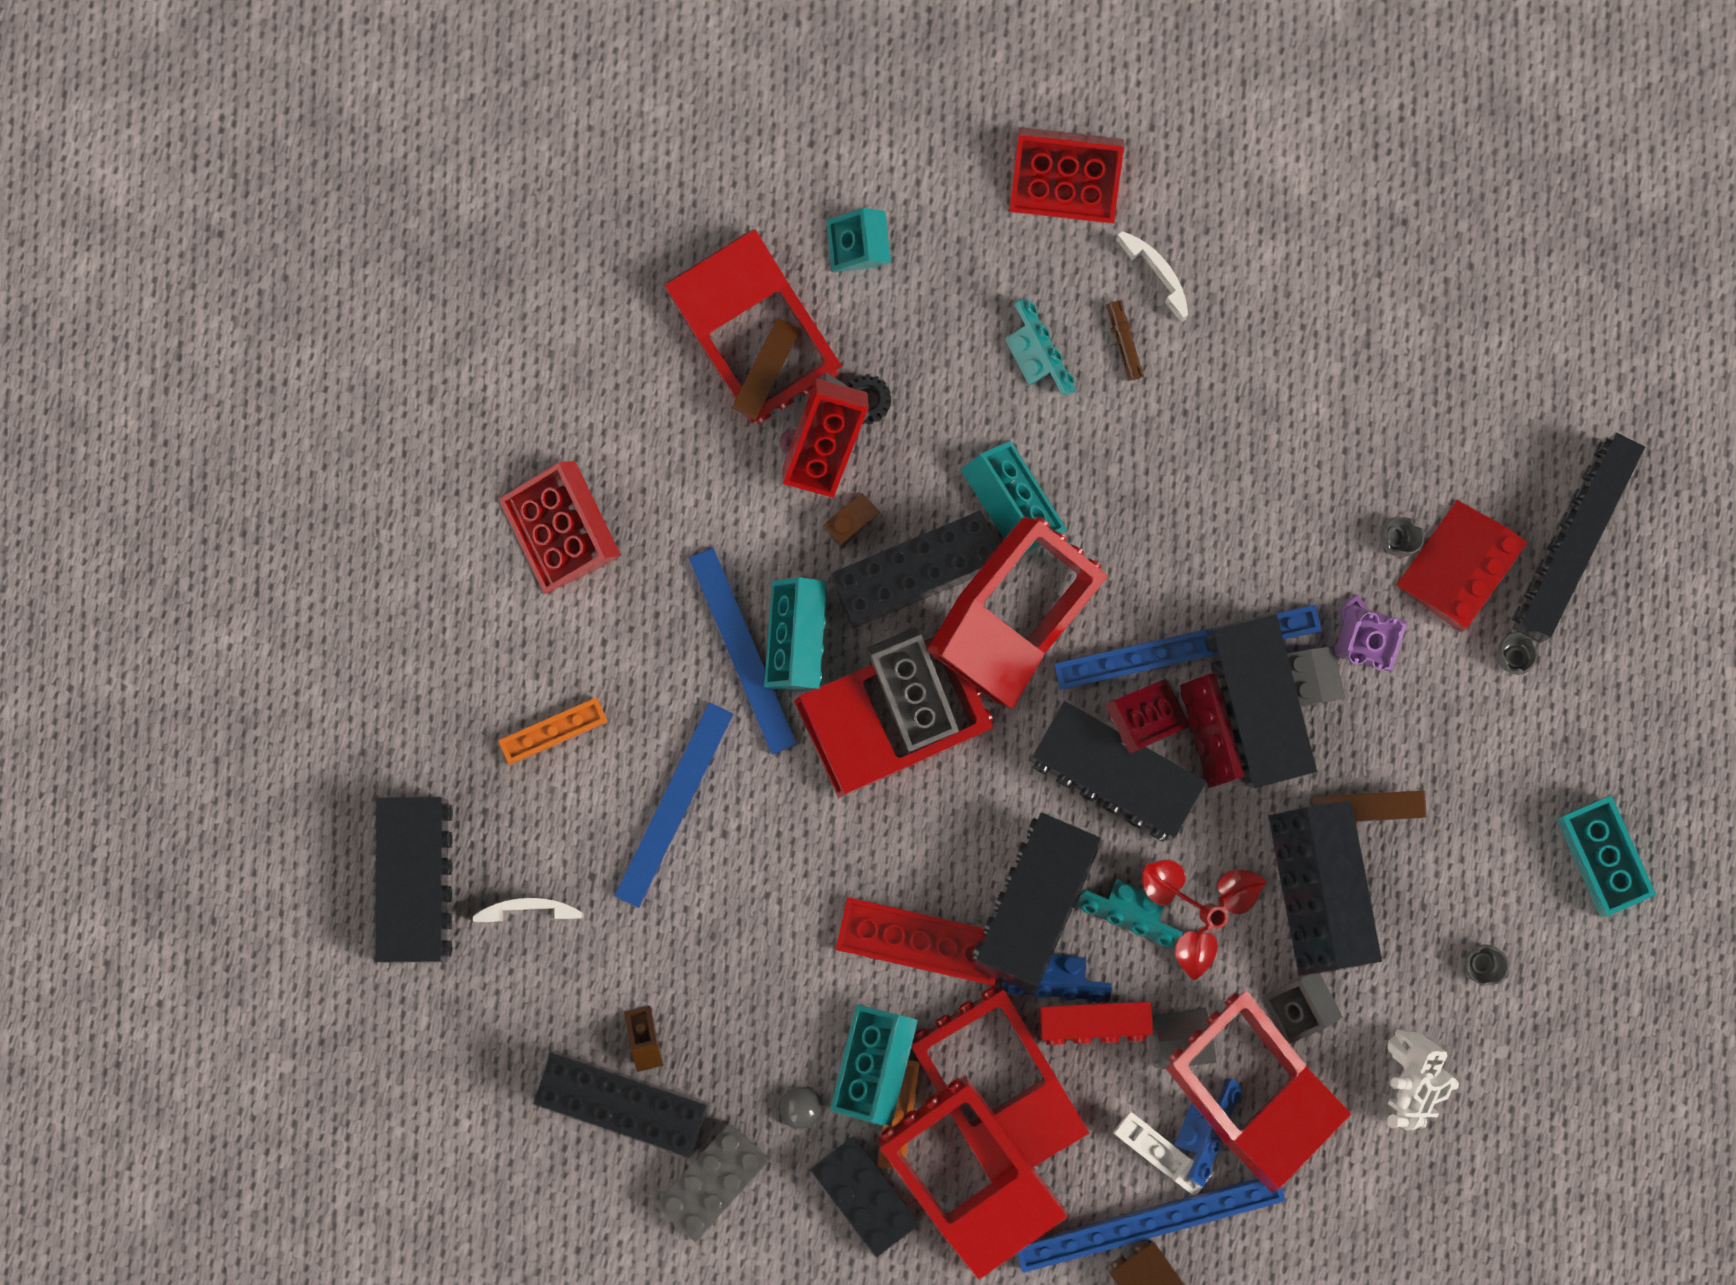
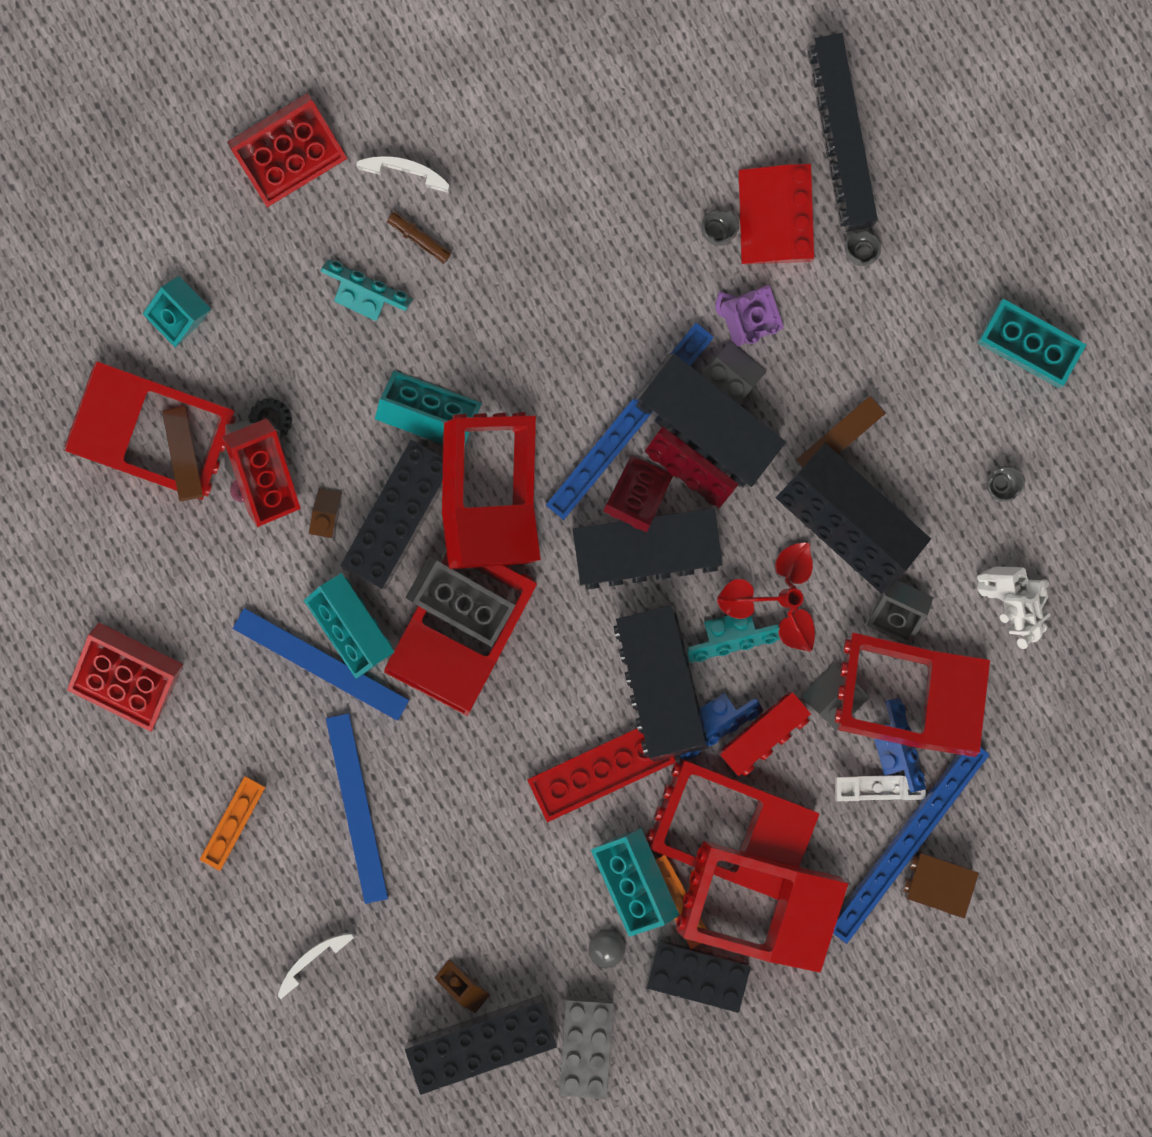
camera: 30 degrees left, 5 degrees up
(413, 880) = (216, 1003): black brick -> none

